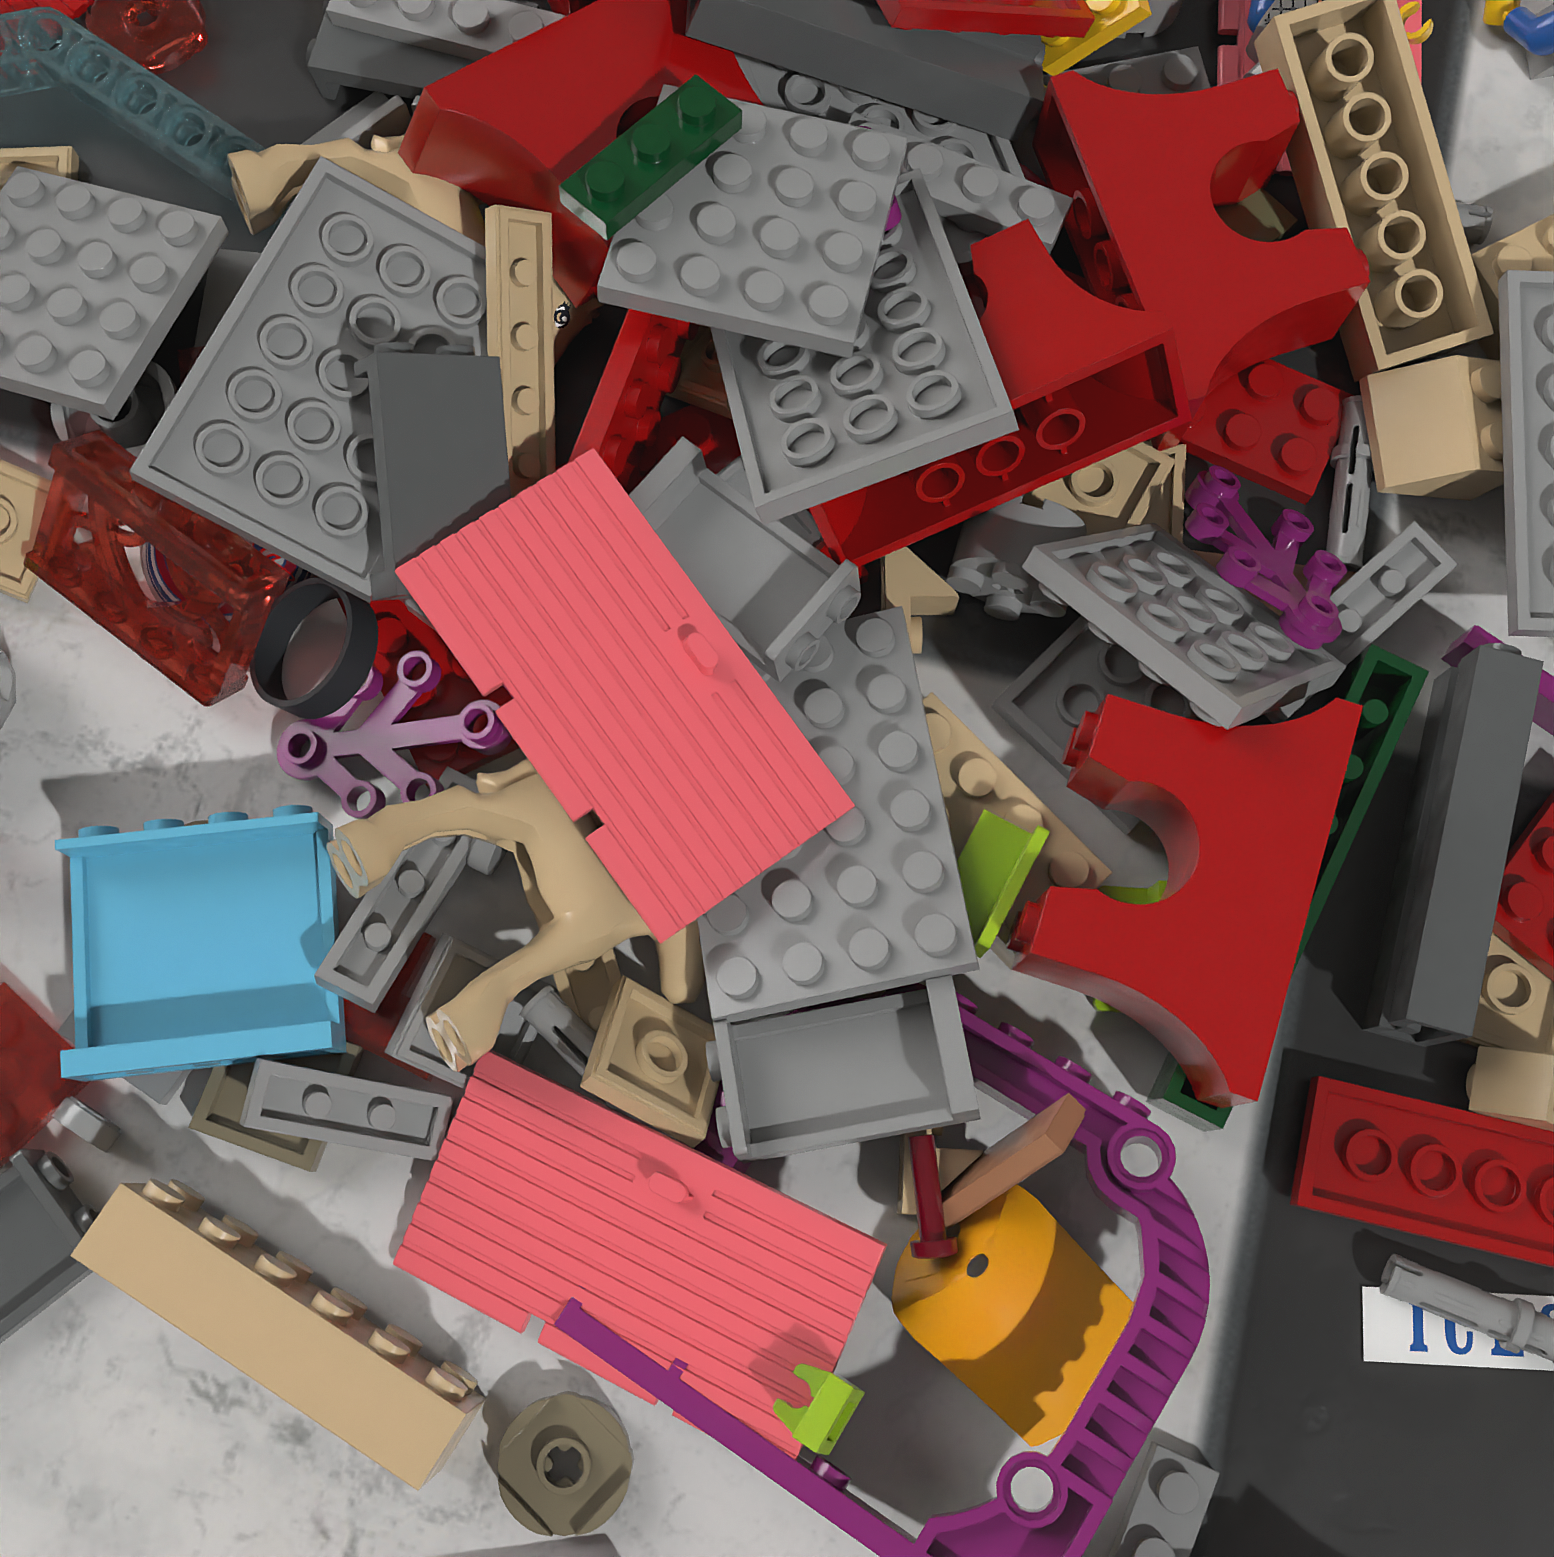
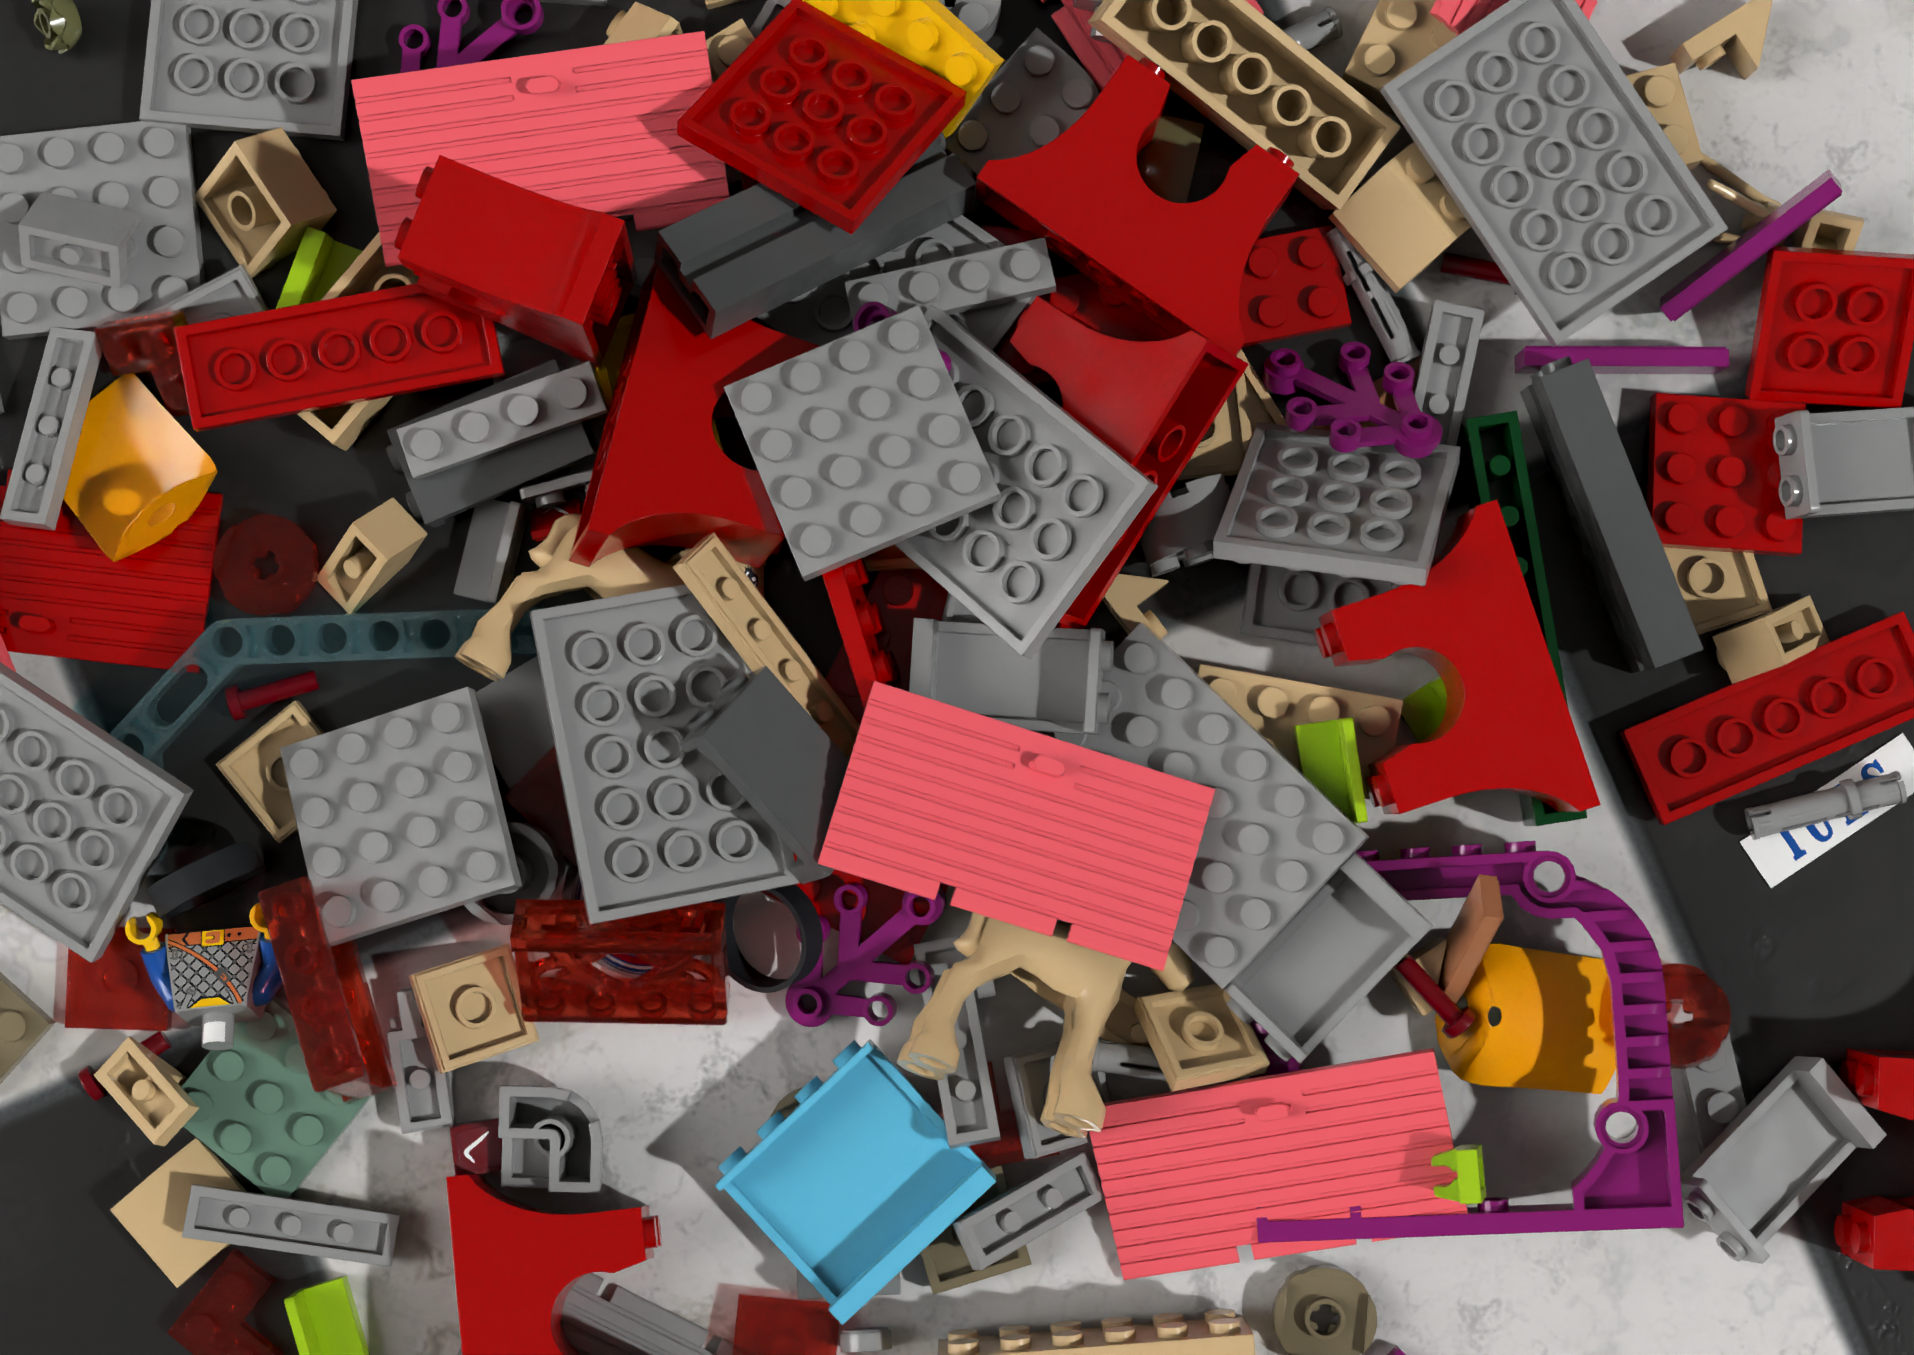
camera: 30 degrees left, 10 degrees up
(22, 113) = (243, 700): none -> dark red piece
(245, 65) = (371, 554): none -> tan slope
(650, 157) = (768, 458): dark green plate -> none
(1200, 1458) = (1711, 1014): none -> clear red plate
(1474, 537) = (1473, 268): none -> dark red piece

